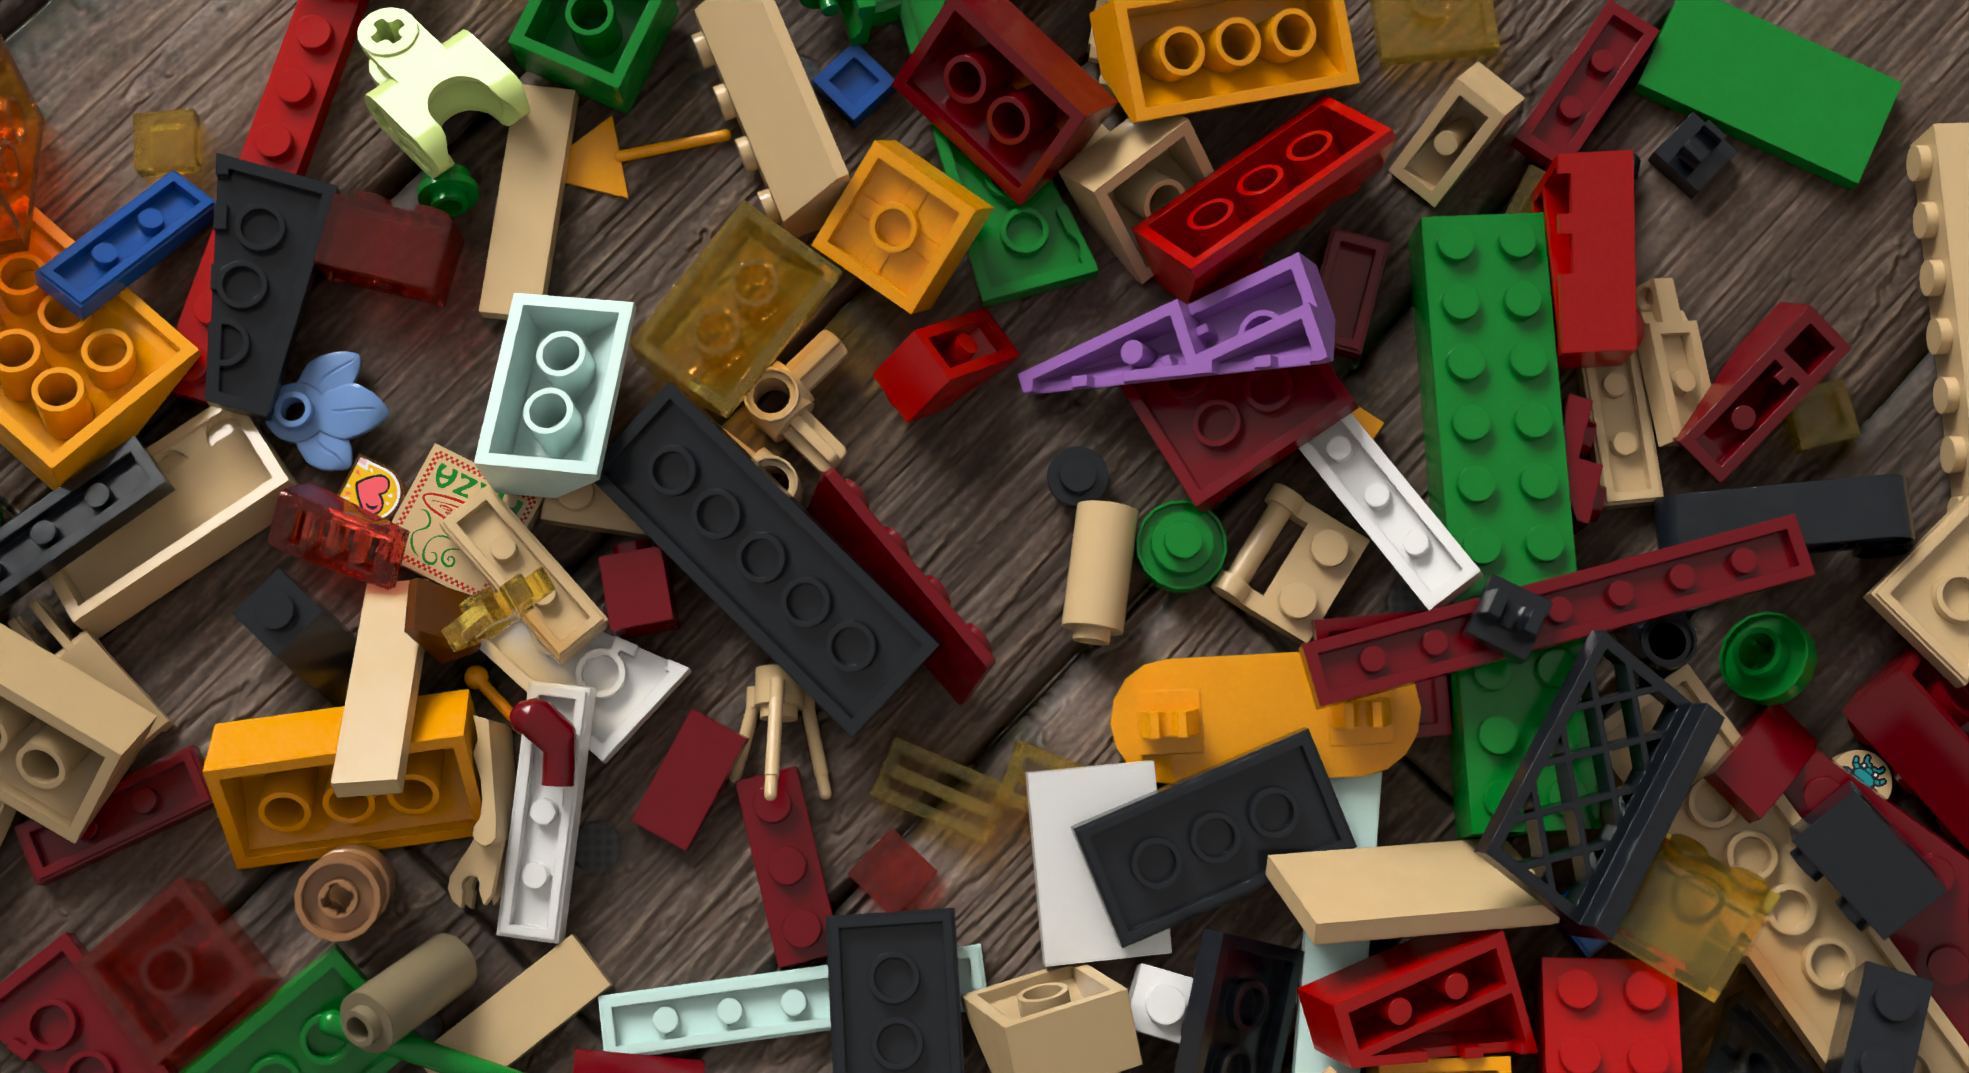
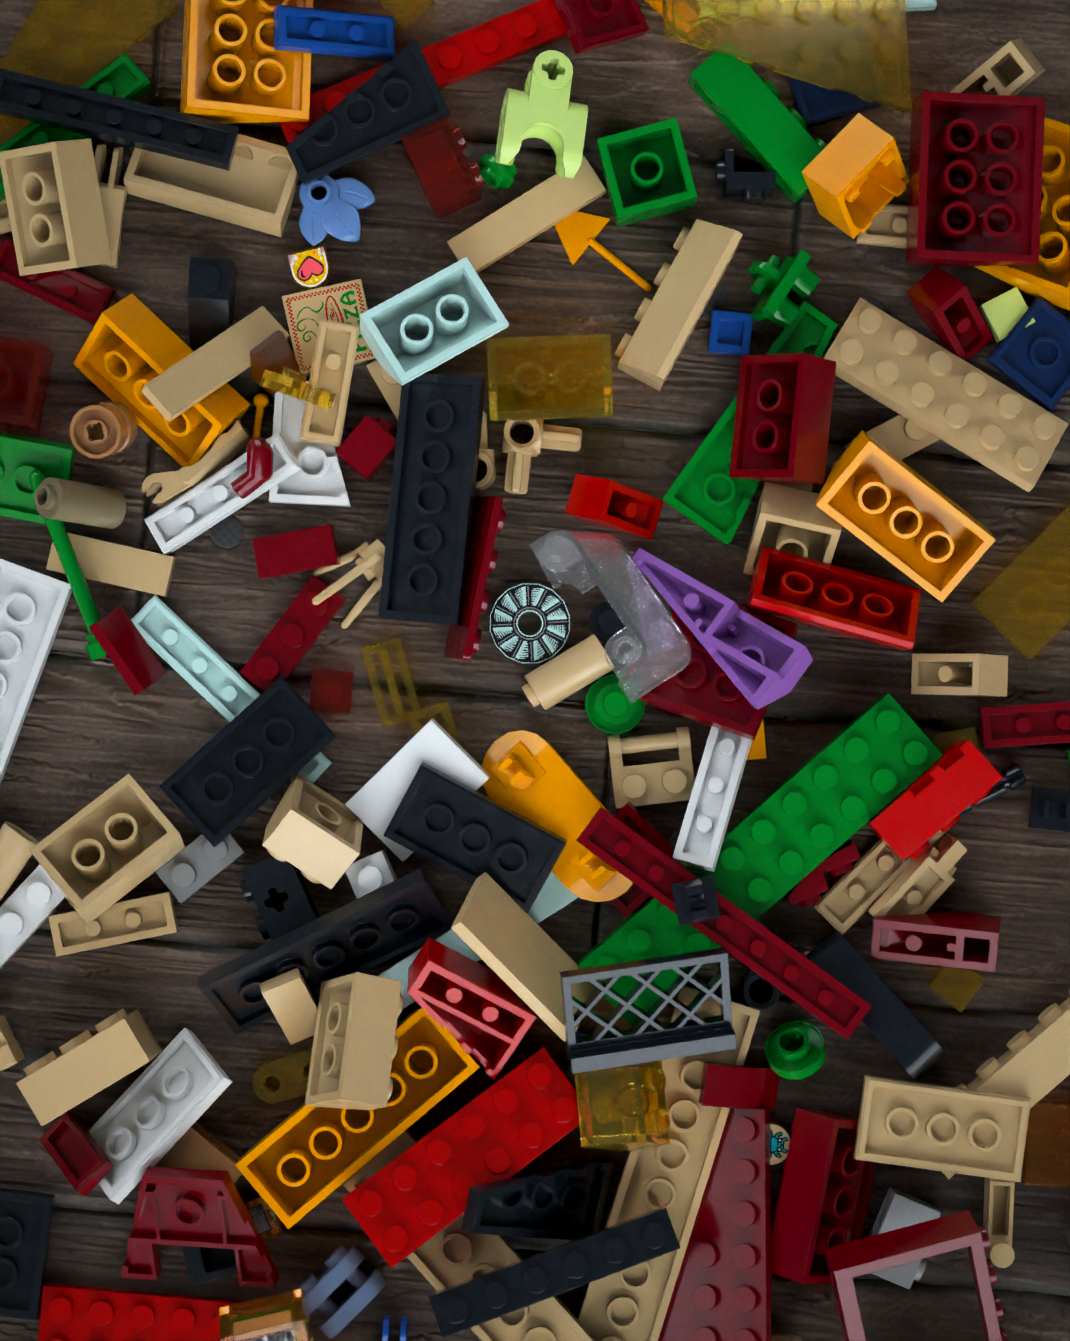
camera: 55 degrees right, 10 degrees up
(300, 528) = (260, 250): clear red slope -> none
(902, 226) = (665, 426): light orange container -> none
(1012, 536) = (536, 647): none -> tile
(1148, 436) = (651, 643): none -> clear windscreen
(1351, 279) = (826, 683): dark red tile -> none
(1866, 860) = (721, 1173): black brick -> none

